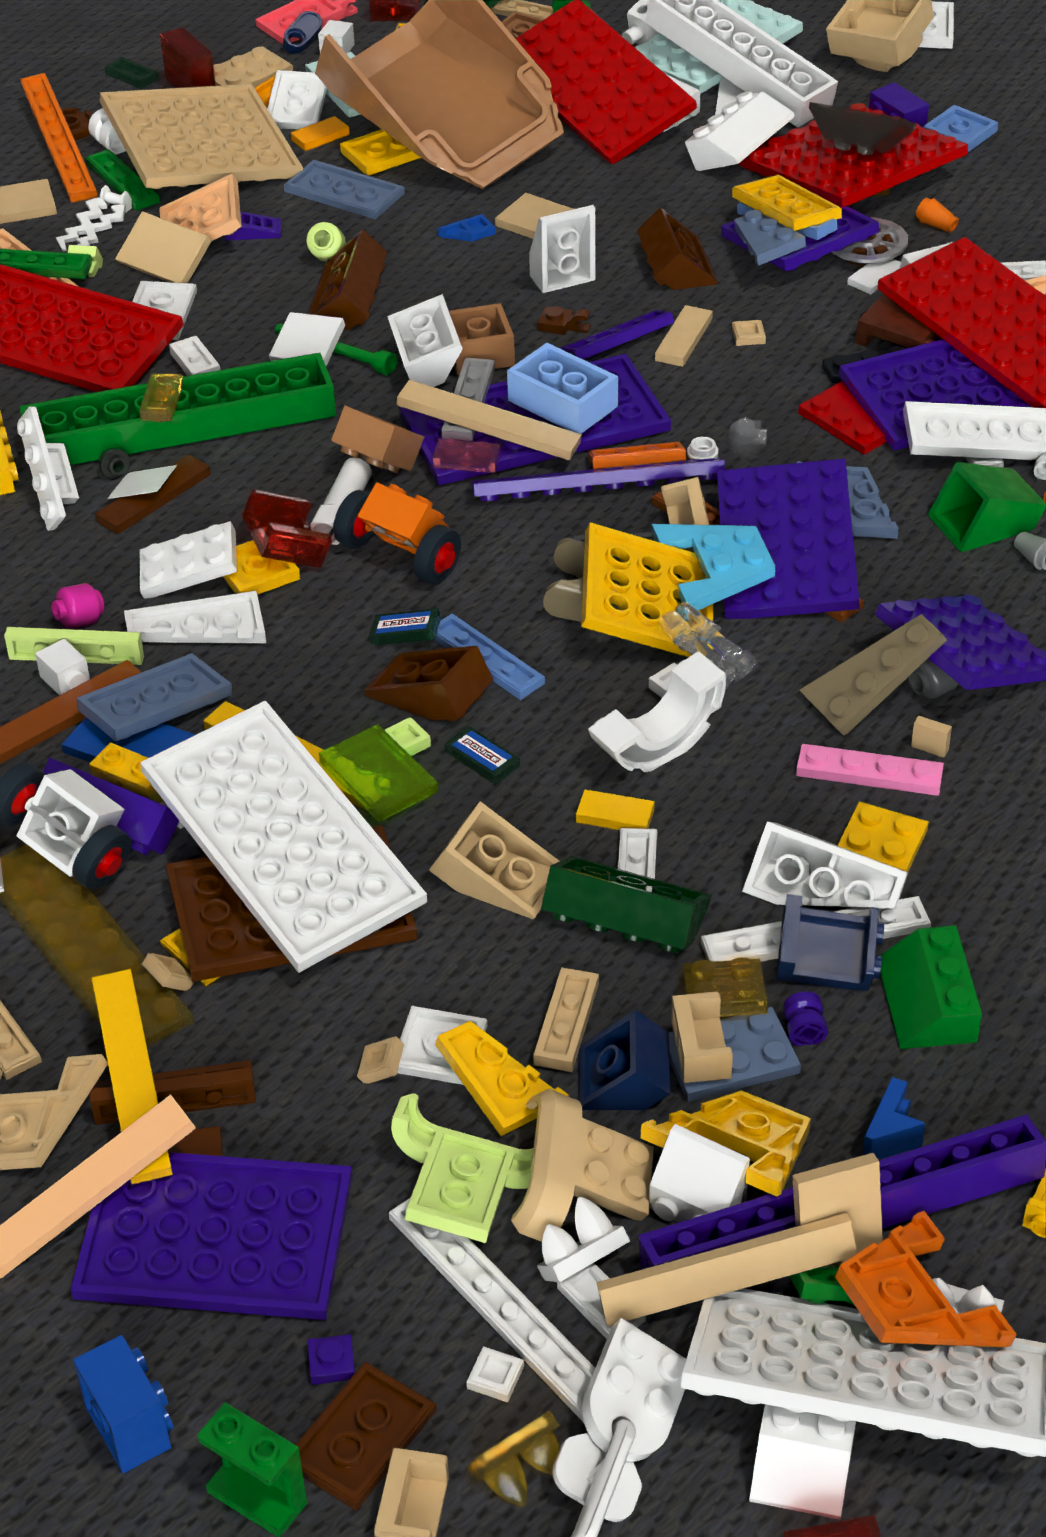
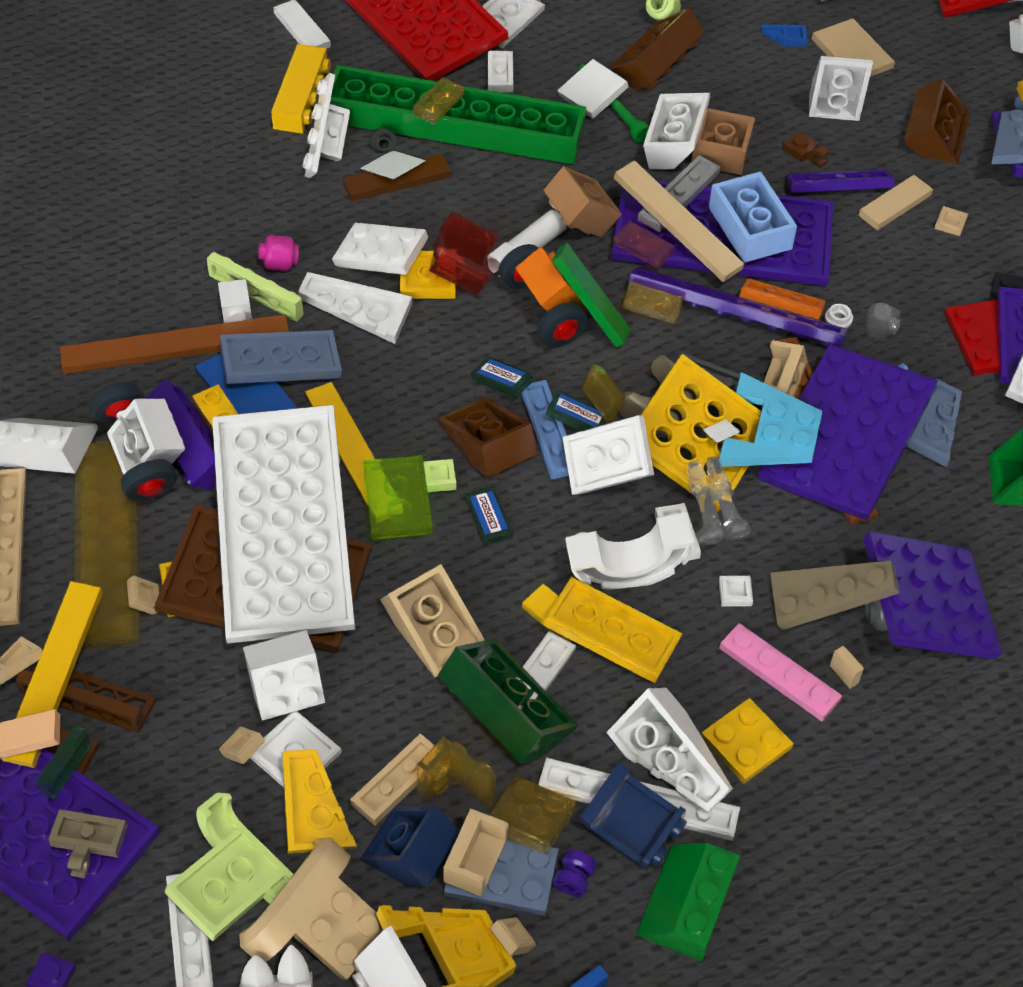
camera: 25 degrees right, 10 degrees up
(209, 1148) = (64, 762): none -> clear green tile
(284, 1204) = (85, 836): none -> dark tan plate
(385, 970) = (284, 675): none -> white brick
(454, 511) = (591, 295): none -> green tile
(508, 629) = (574, 412): none -> tile
(511, 504) = (652, 302): none -> clear yellow tile
(523, 598) = (603, 392): none -> clear yellow tile
(575, 644) = (608, 455): none -> white tile
(632, 976) = (453, 762): none -> clear yellow bracket
(671, 580) = (721, 431): none -> white sticker
(684, 798) = (612, 629): none -> yellow tile
(776, 720) = (735, 591): none -> white tile
(786, 1098) = (513, 936): none -> tan tile

